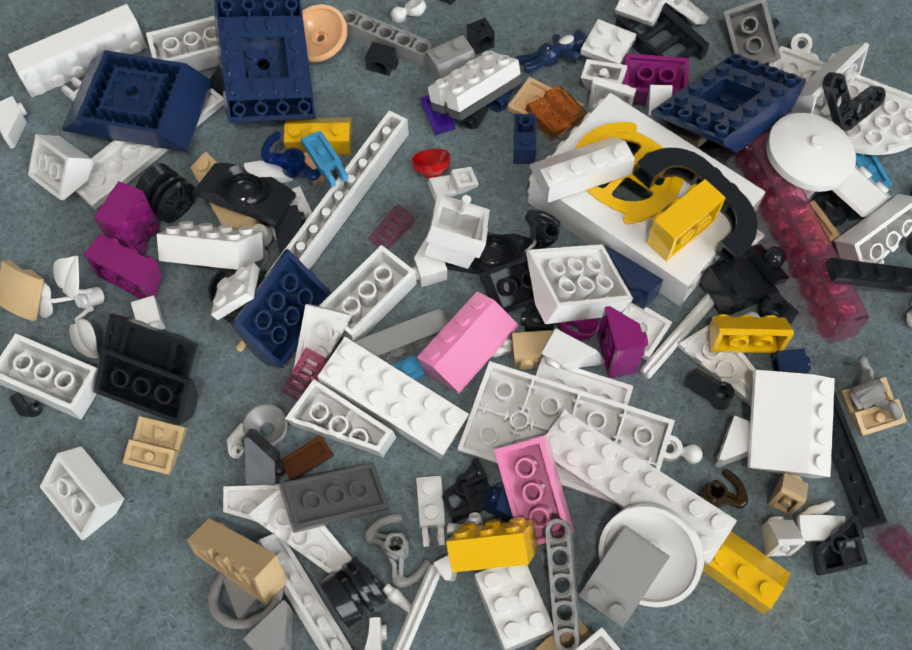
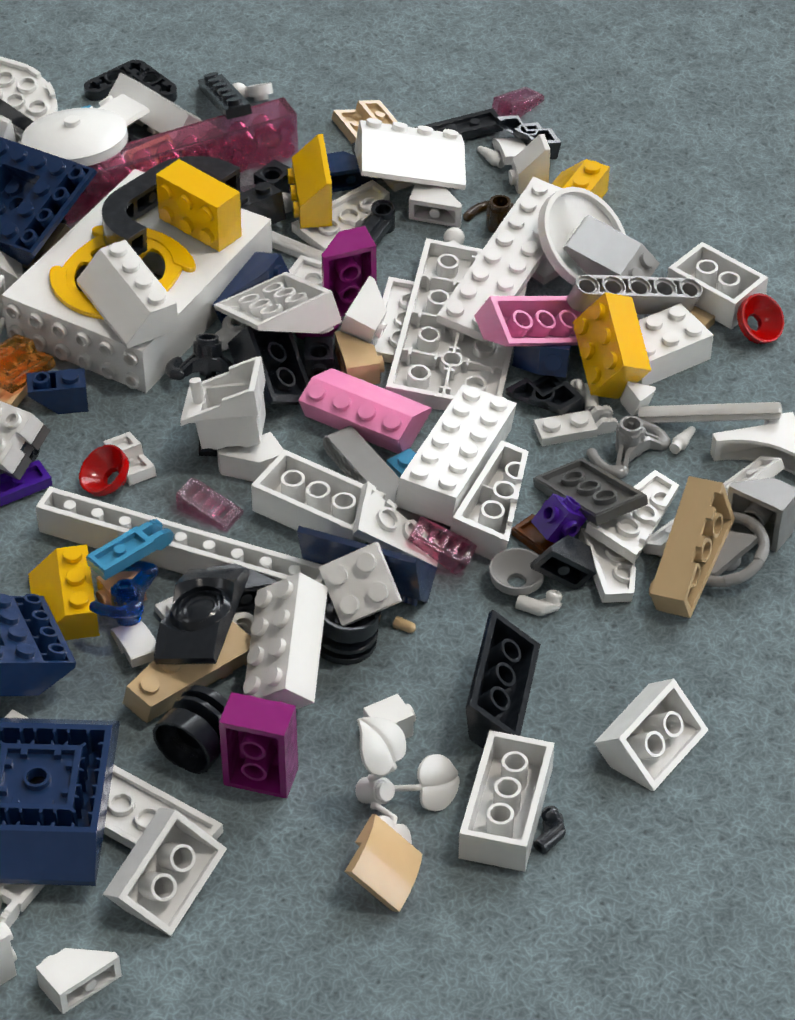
camera: 100 degrees left, 20 degrees down
(124, 267) = (328, 743): magenta slope -> none
(150, 344) = (441, 695): black slope -> none
(155, 445) = (567, 683): tan slope -> none
(299, 461) = (559, 518): none -> dark purple brick
(352, 591) = (694, 453): black wheel -> none
(789, 494) = (484, 164): tan slope -> none
(872, 392) = (356, 108): light grey piece -> none

